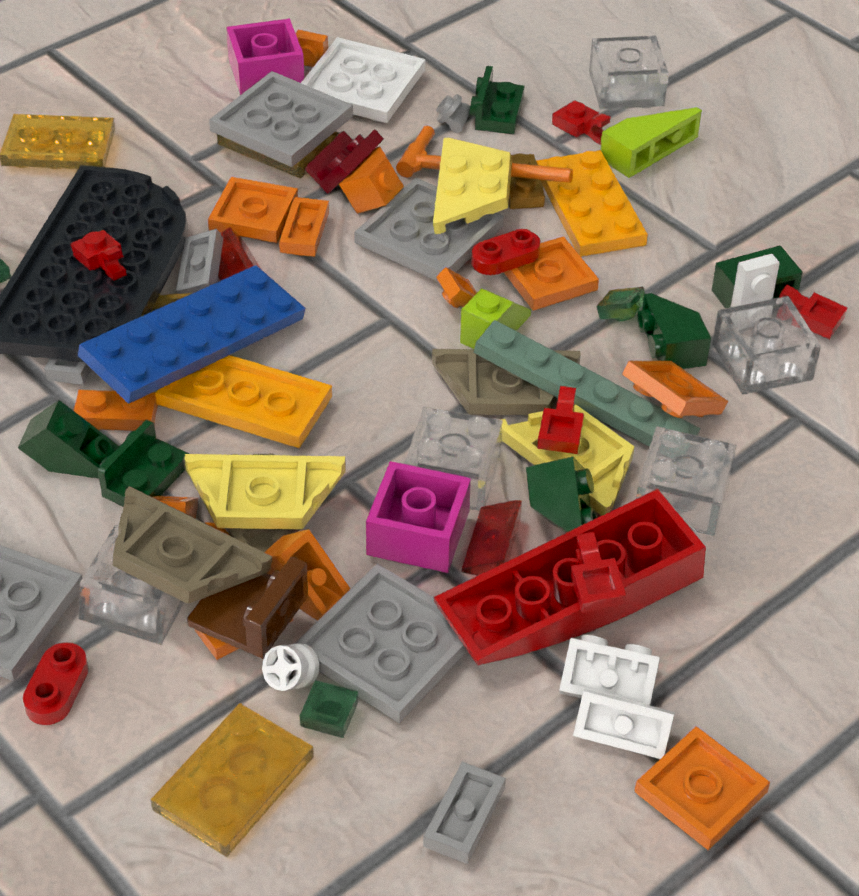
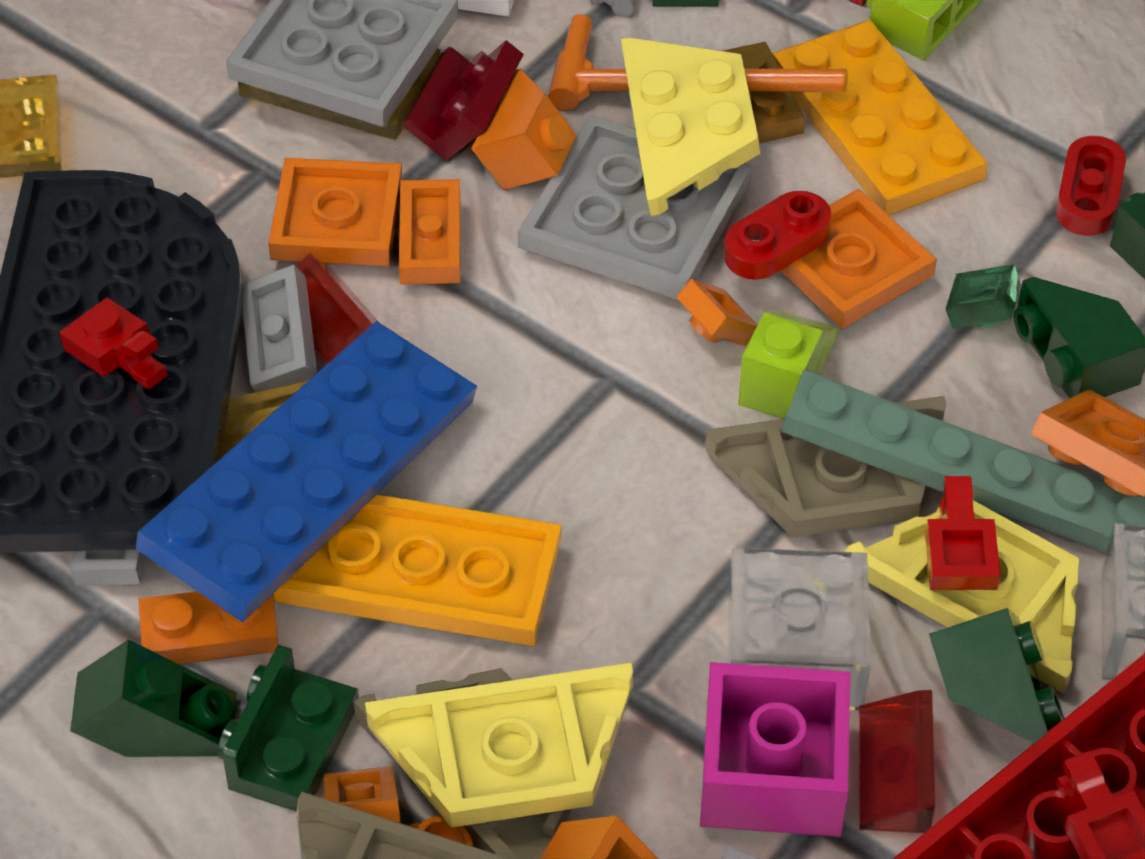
camera: 10 degrees left, 5 degrees up
(706, 249) = (1091, 185): none -> red plate

